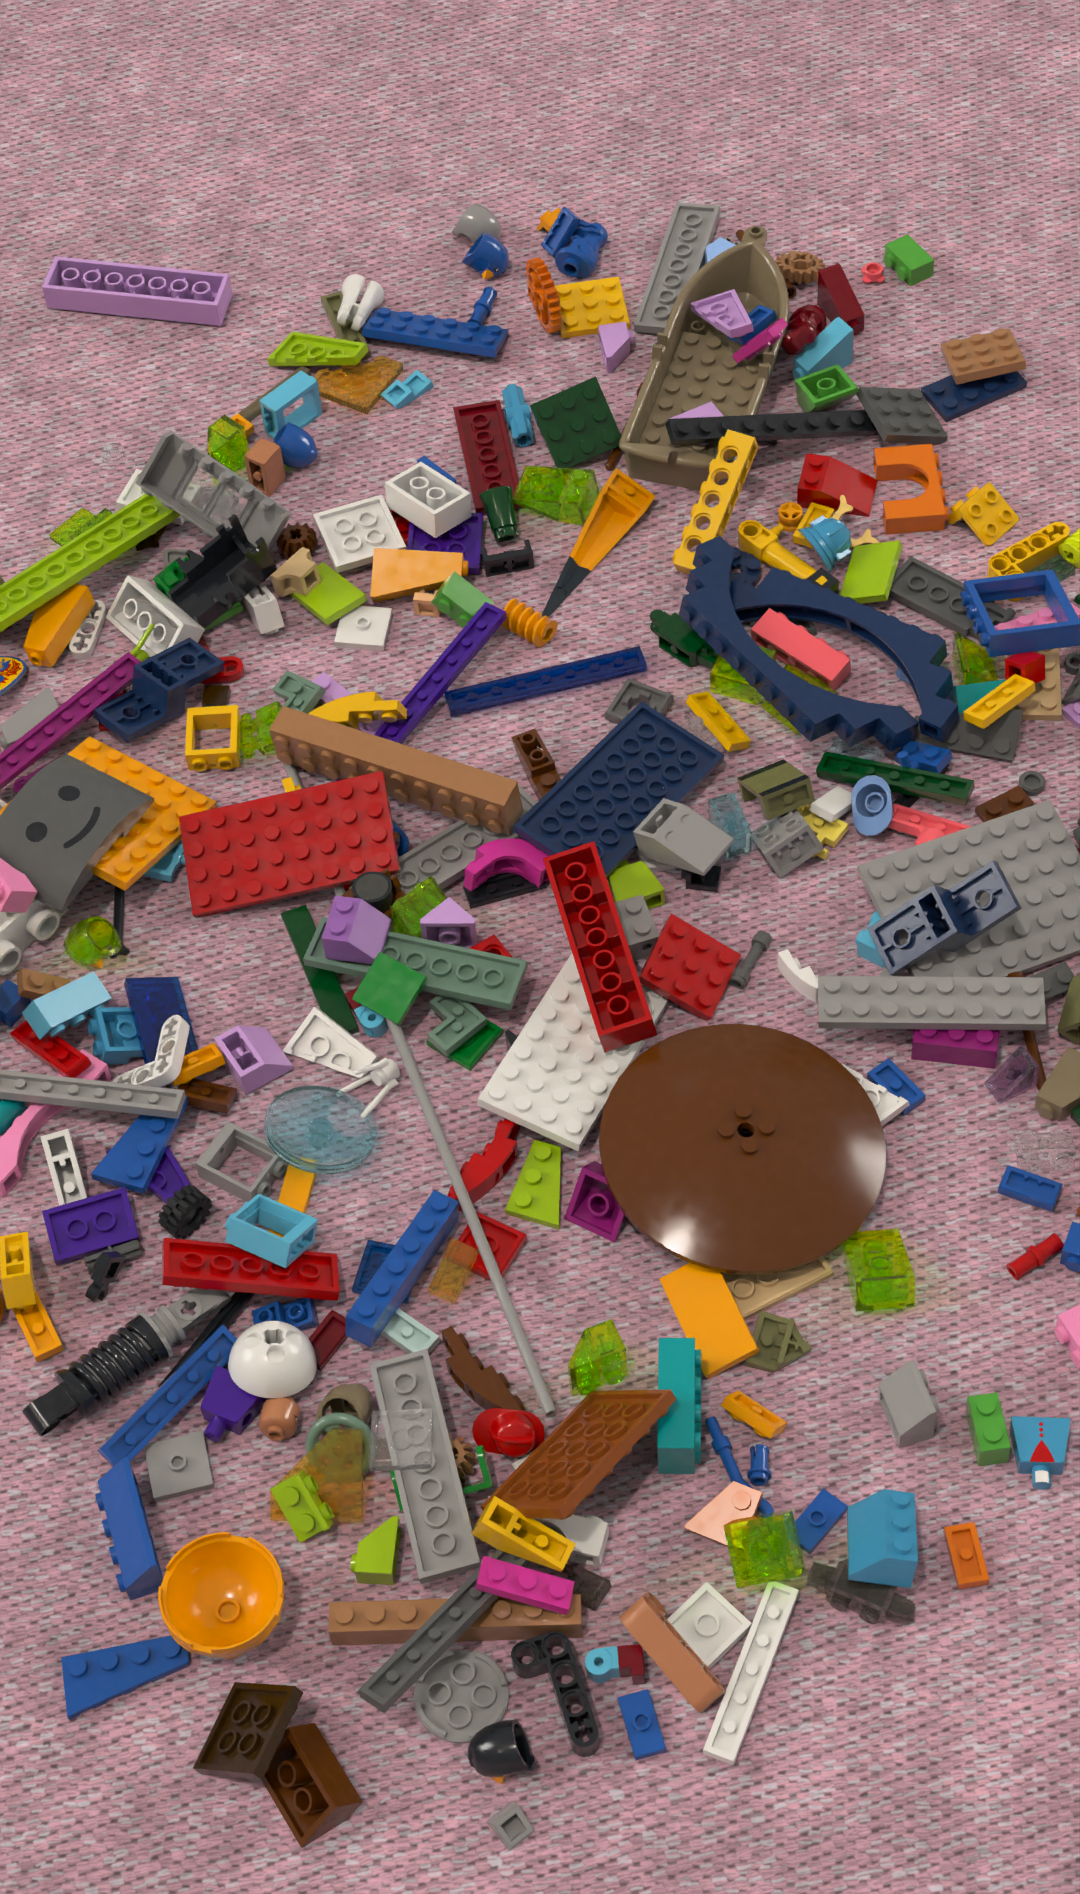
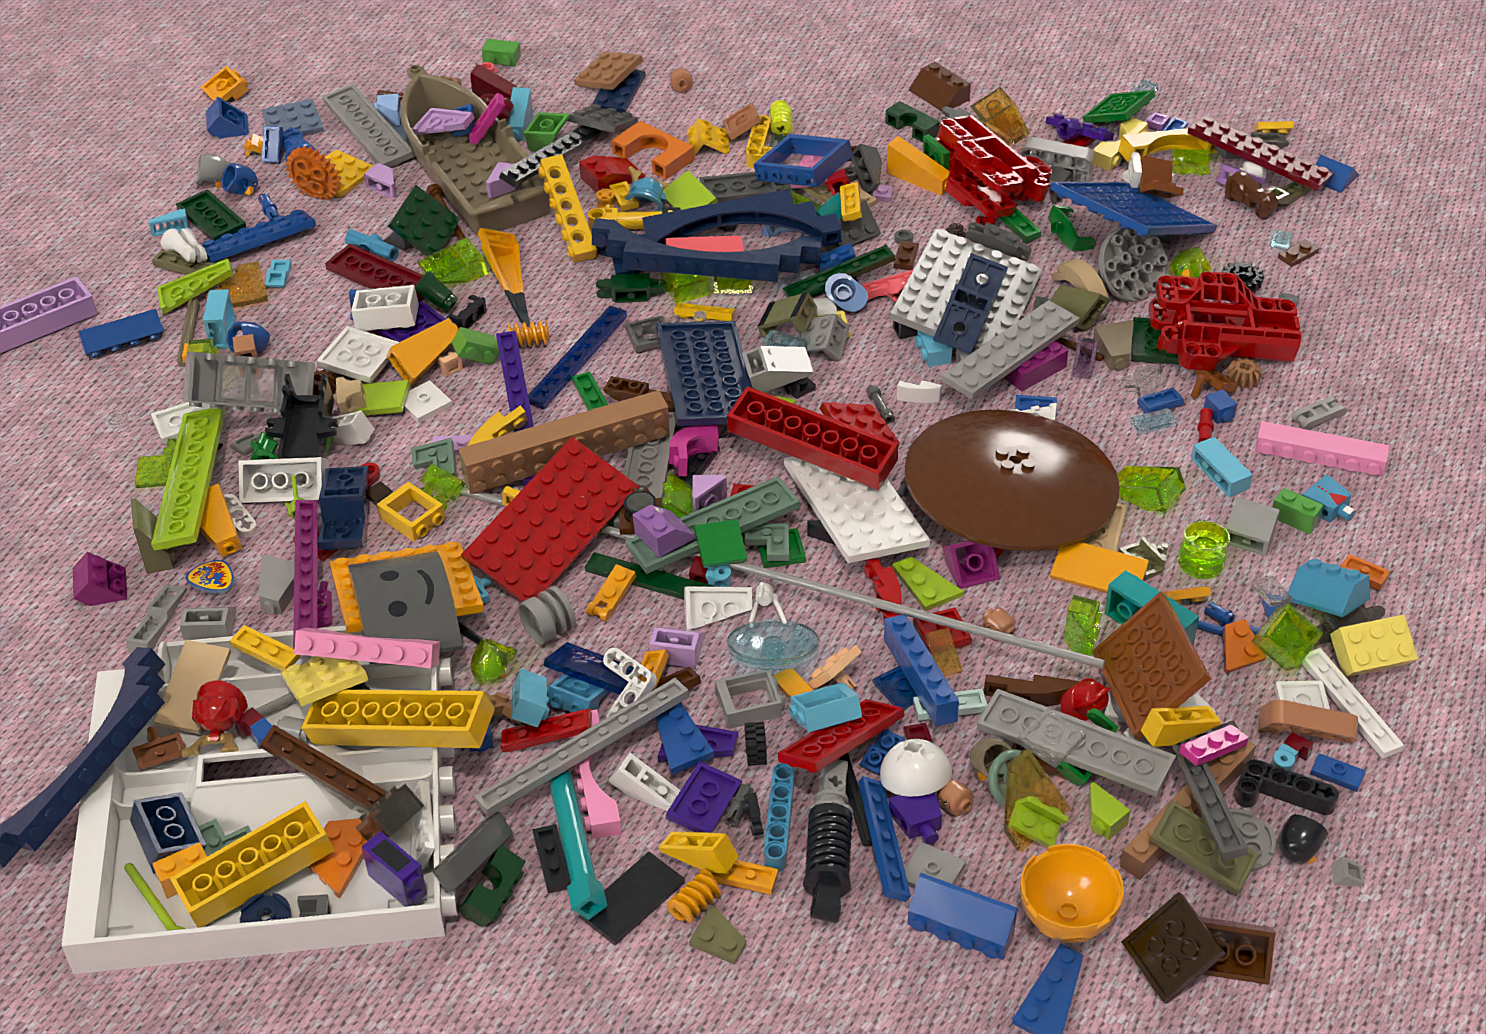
camera: 50 degrees left, 10 degrees down
(108, 1302) = (779, 817): none -> dark azure beam
(180, 936) = (547, 615): none -> light grey wheel
(208, 362) = (120, 332): none -> blue slope
(267, 959) = (611, 592): none -> light orange plate
(337, 1203) = (835, 668): none -> light nougat plate
(381, 1635) = (1190, 841): none -> olive tile
(389, 266) = (167, 218): none -> medium azure slope
(425, 280) = (211, 215): none -> dark green plate
(513, 723) = (589, 391): none -> green tile
(540, 1286) = (999, 620): none -> nougat head
(561, 174) = (226, 120): none -> blue slope
(605, 131) = (225, 84): none -> light orange plate
(625, 212) = (296, 115): none -> sand blue plate
(826, 1385) = (1204, 549): none -> clear neon green wheel
(840, 1489) = (1272, 591): none -> clear tile
(842, 1638) = (1374, 646): none -> light yellow brick
(985, 1314) = (1221, 467): none -> medium azure brick
(993, 1204) = (1153, 421): none -> clear light blue tile
(1038, 516) = (741, 120): none -> nougat tile
(1048, 418) = (681, 80): none -> nougat head

